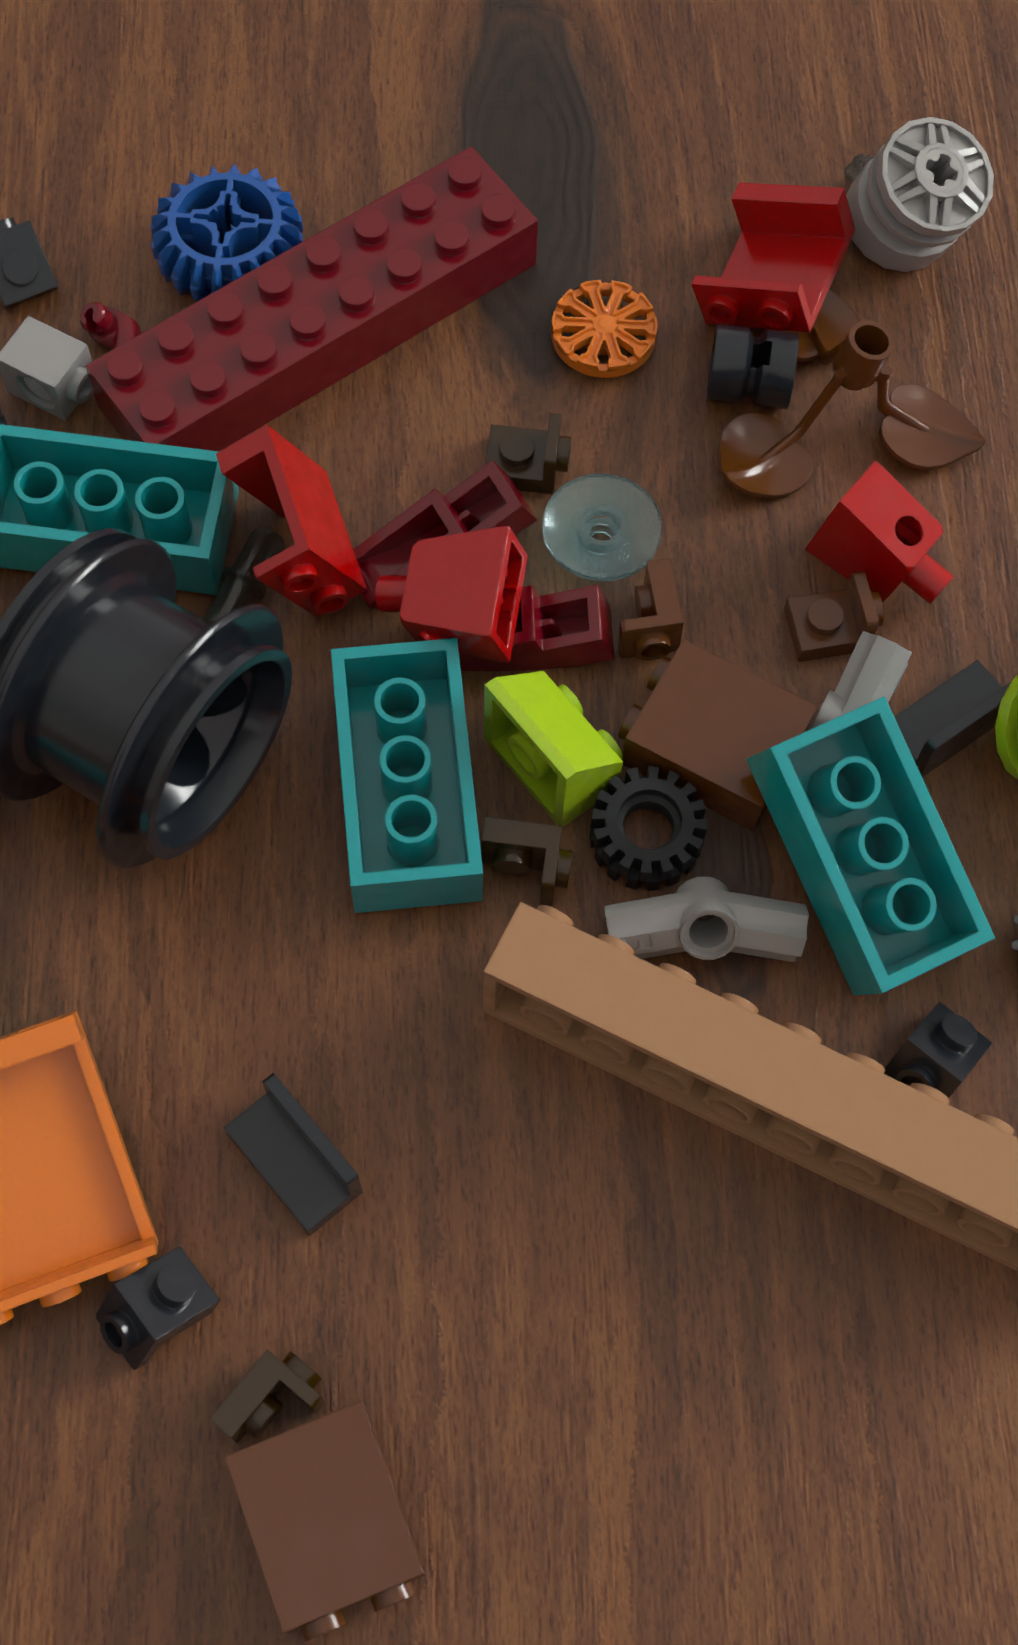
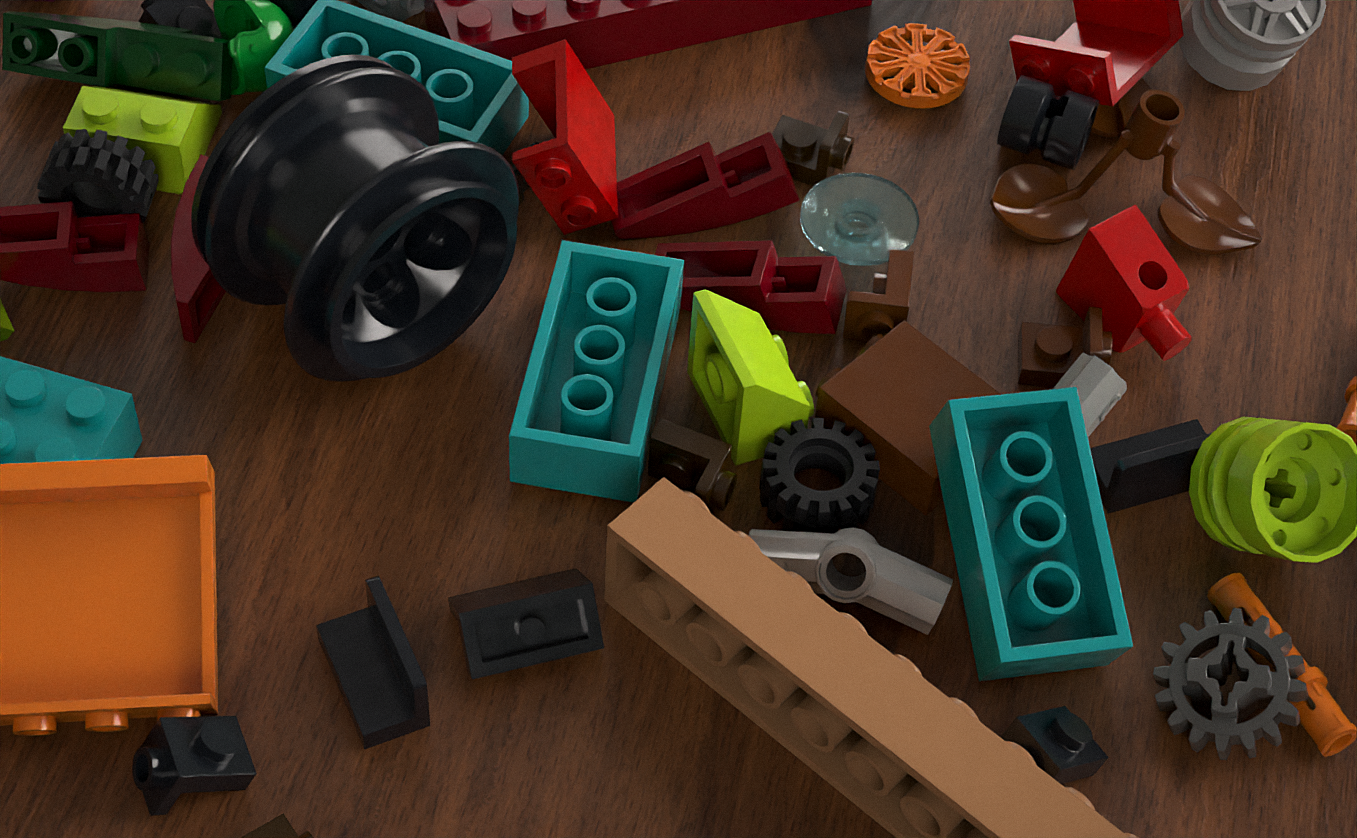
camera: 15 degrees right, 15 degrees down
(420, 1061) = (527, 622): none -> black panel
(461, 590) = (708, 222): red torso -> none

